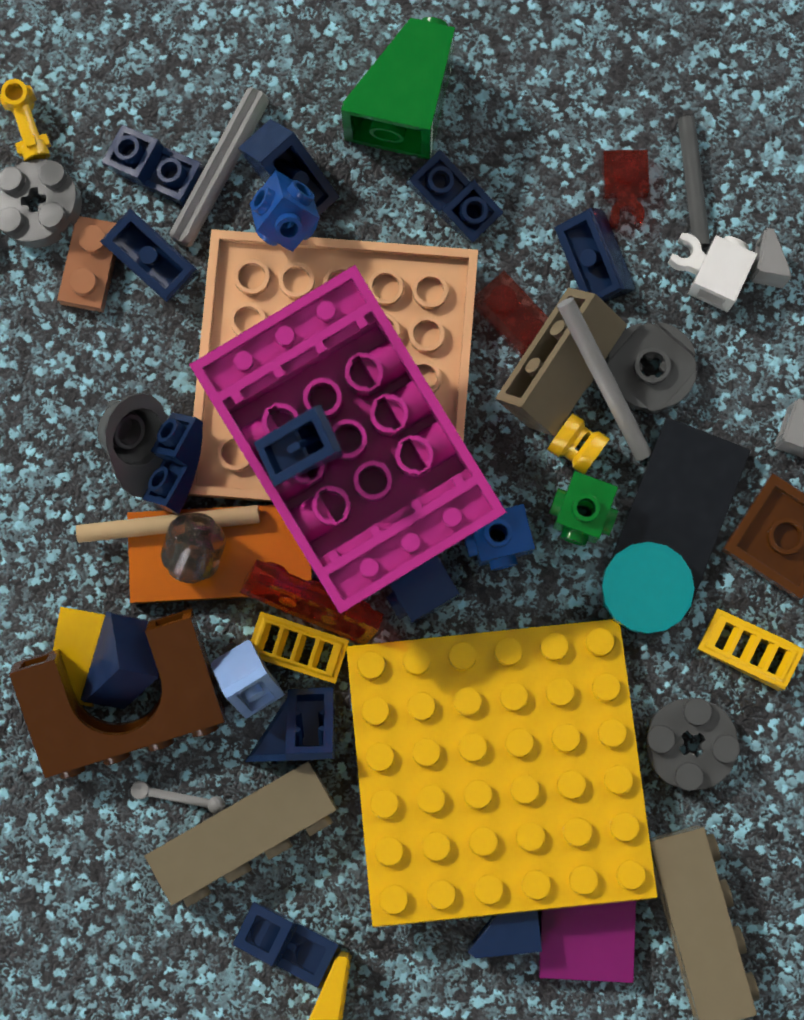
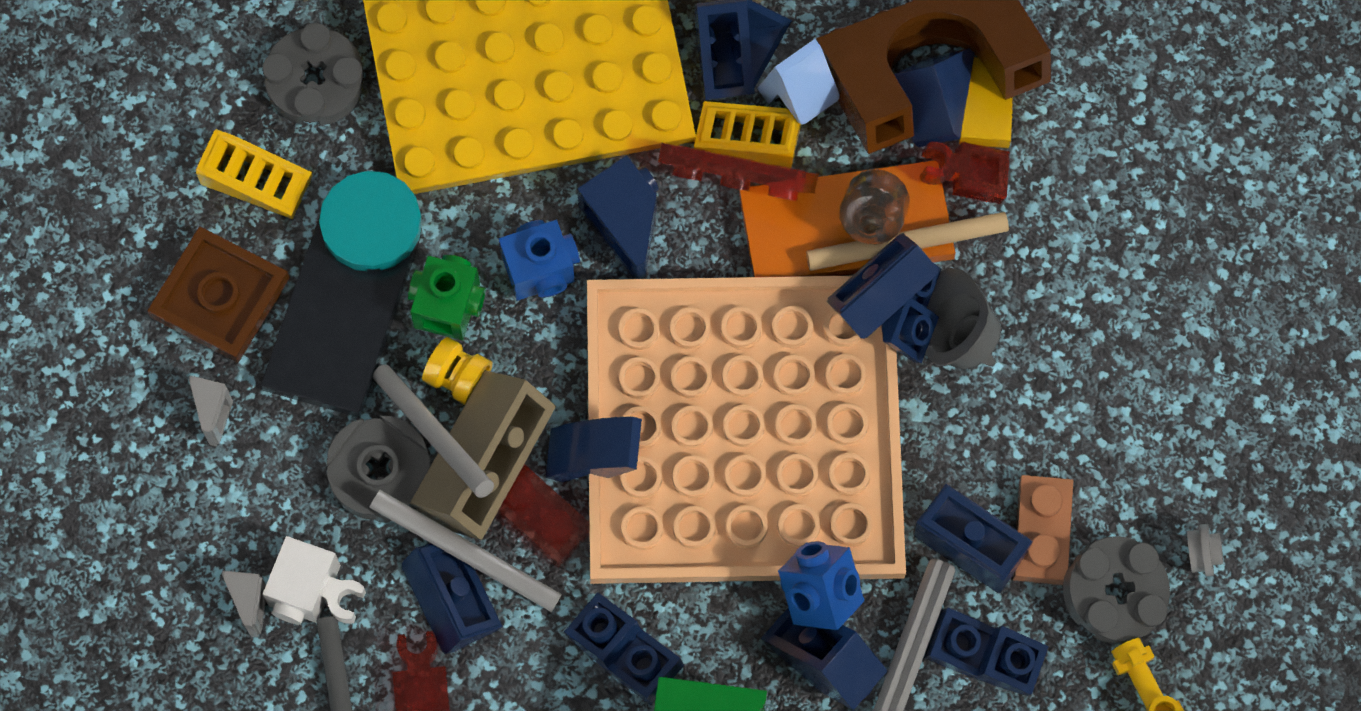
camera: 170 degrees right, 10 degrees down
(99, 586) = (974, 170): none -> clear red plate
(196, 471) = (883, 285): none -> dark blue slope
(298, 446) = (761, 261): dark blue slope -> none
(404, 470) = (711, 297): dark pink wedge -> none
(465, 355) = (593, 447): none -> dark blue slope
(575, 280) = (465, 550): none -> light grey bar

